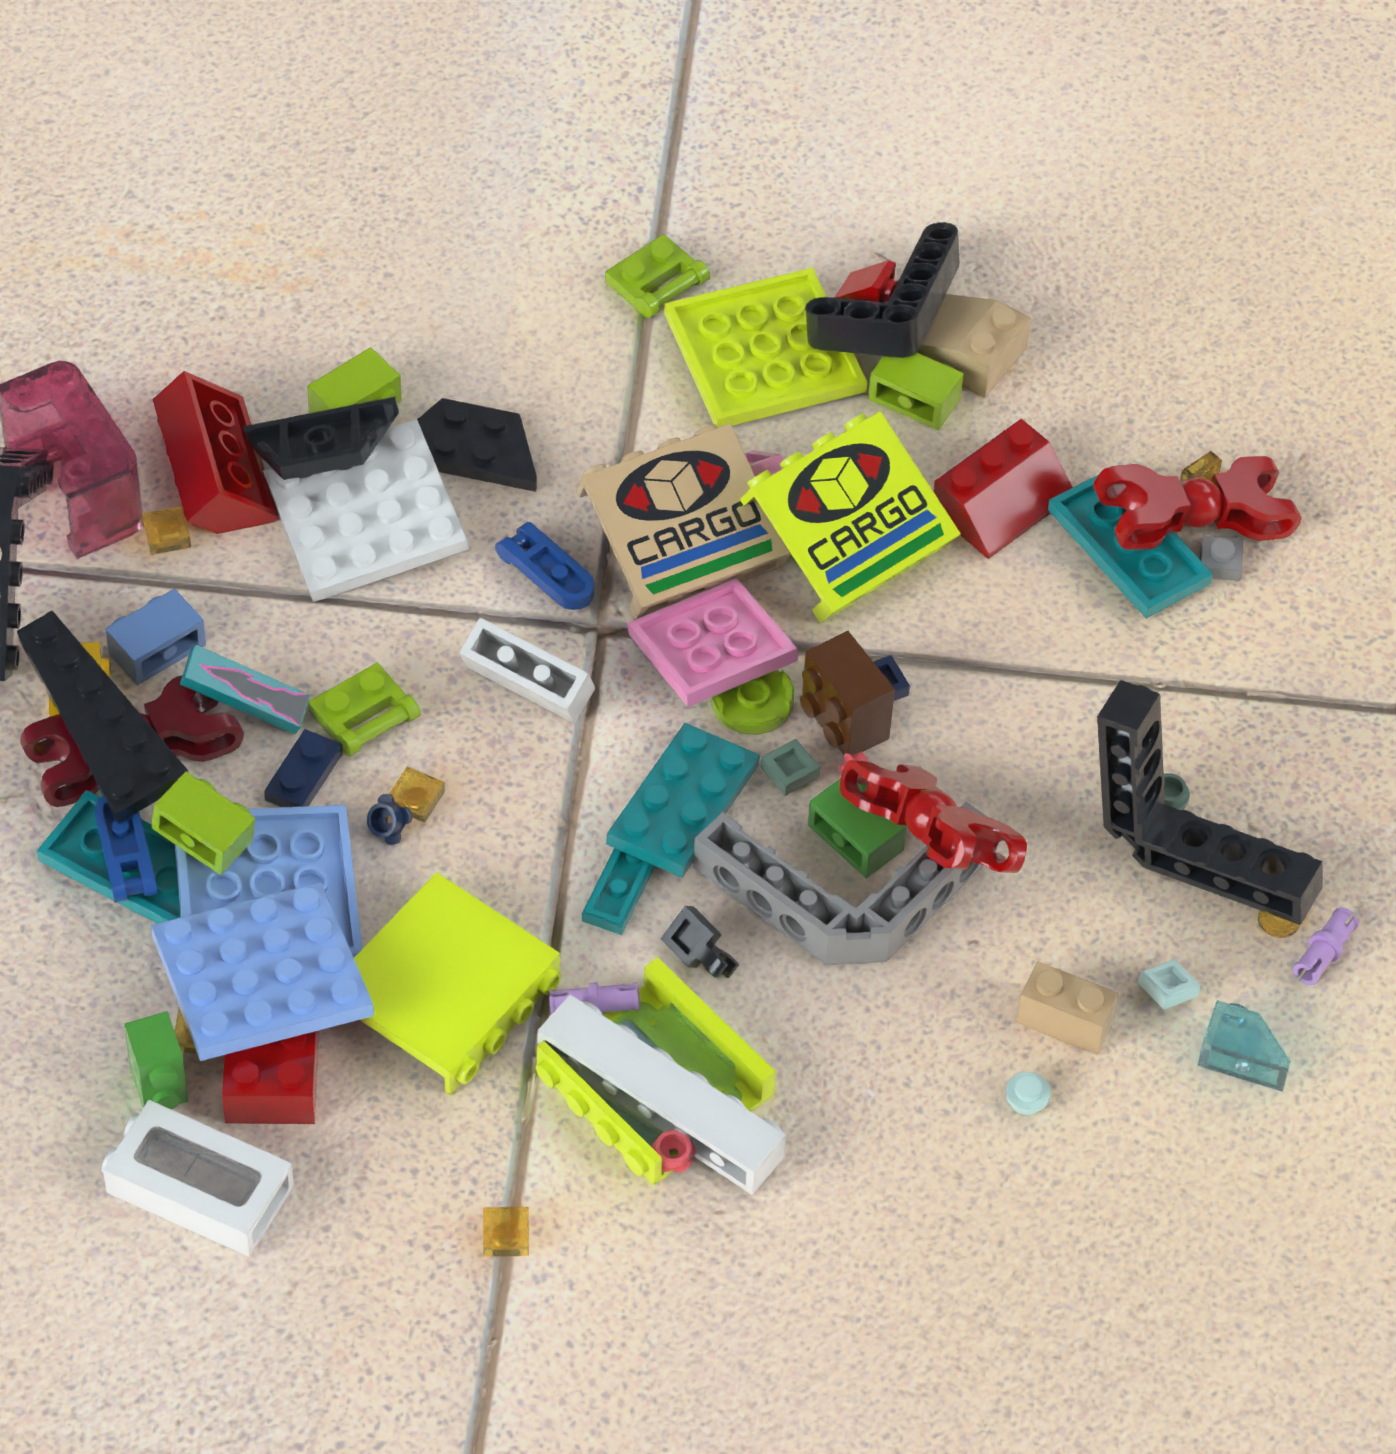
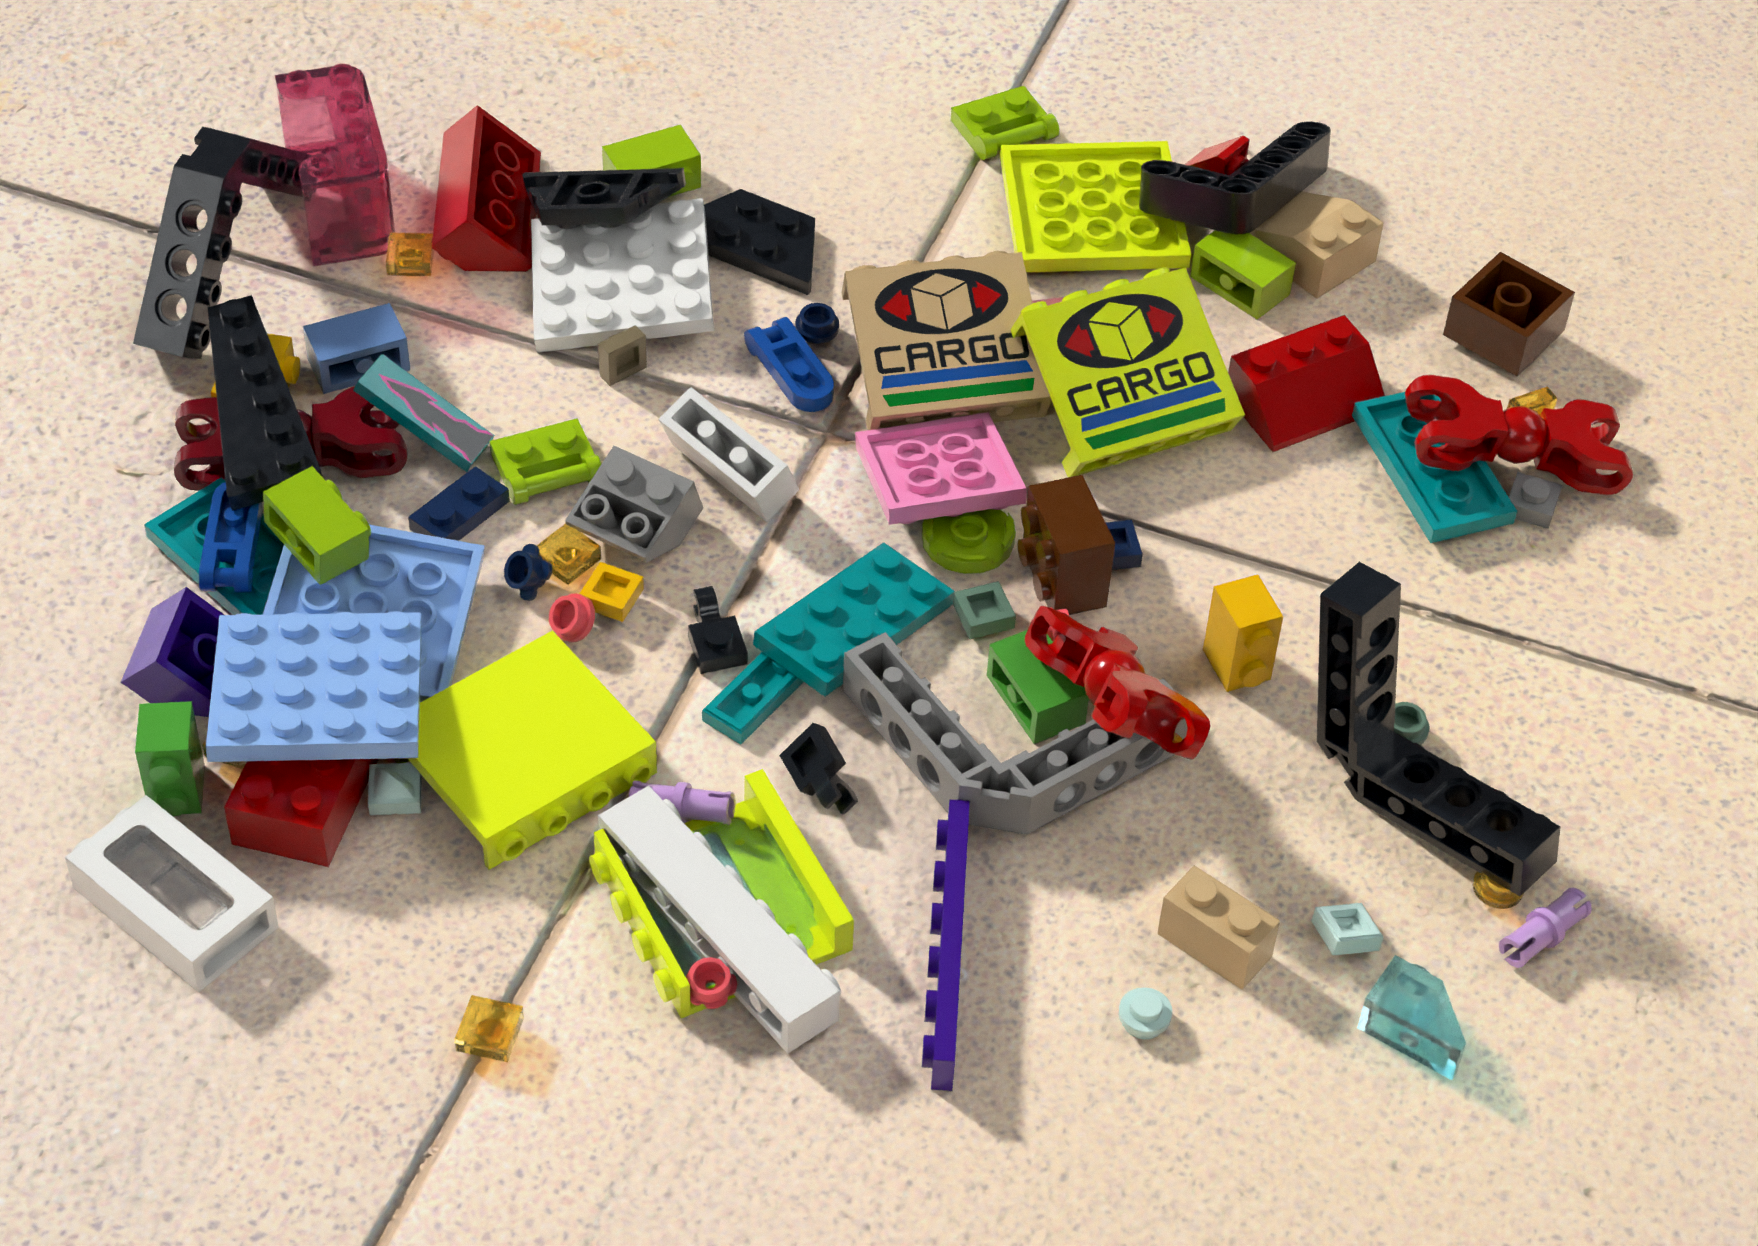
camera: 15 degrees right, 5 degrees down
(122, 967) = (176, 653): none -> dark purple slope
(347, 1044) = (394, 789): none -> light aqua tile
(396, 591) = (622, 355): none -> dark tan plate
(442, 853) = (572, 617): none -> coral plate
(463, 738) = (636, 506): none -> light grey slope
(467, 821) = (613, 590): none -> yellow plate
(556, 521) = (817, 323): none -> dark blue plate
(568, 845) = (714, 639): none -> black plate
(857, 1084) = (945, 960): none -> dark purple plate
(1017, 743) = (1242, 633): none -> yellow brick
(1159, 383) = (1508, 313): none -> reddish brown brick

